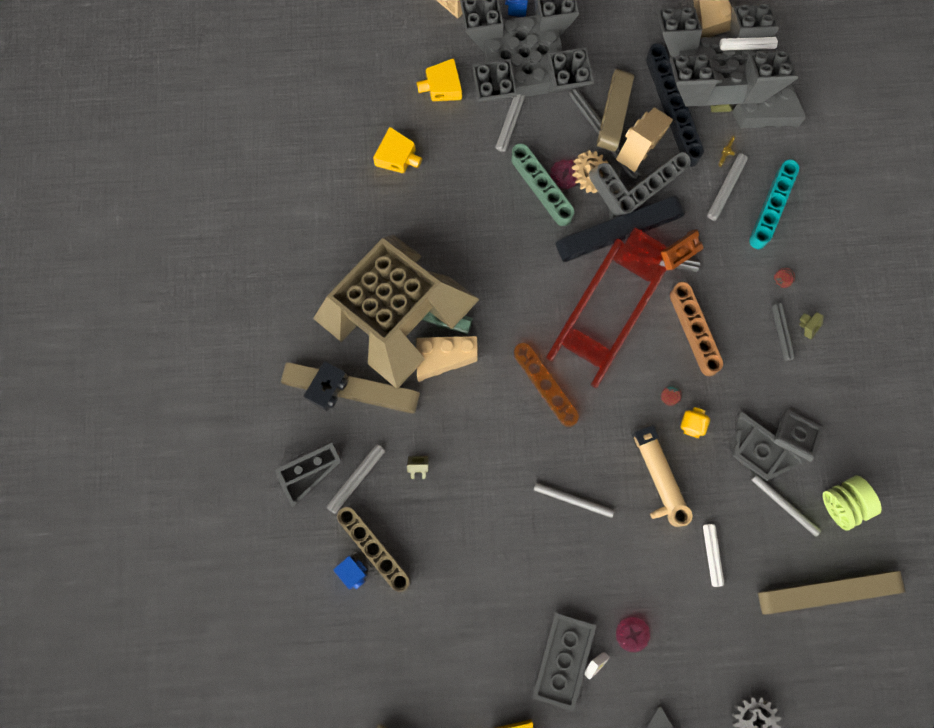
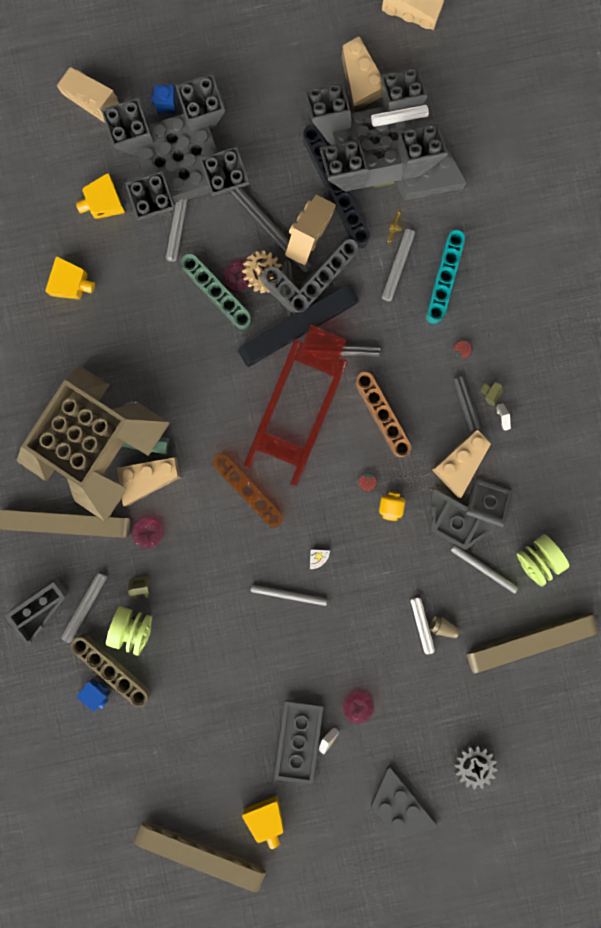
camera: 10 degrees left, 10 degrees up
(327, 376) = (31, 536): black brick -> none
(400, 507) = (129, 630): none -> yellowish green wheel
(429, 404) = (140, 527): none -> clear pink gear
(610, 465) = (318, 558): none -> white tile
(615, 110) = (277, 203): dark tan beam -> none
(662, 476) = (367, 562): tan piece -> none
(682, 250) = (360, 339): dark orange plate -> none
(735, 559) = (442, 627): none -> dark tan cone
(773, 390) = (461, 464): none -> tan wedge
(823, 350) = (505, 416): none -> white tile

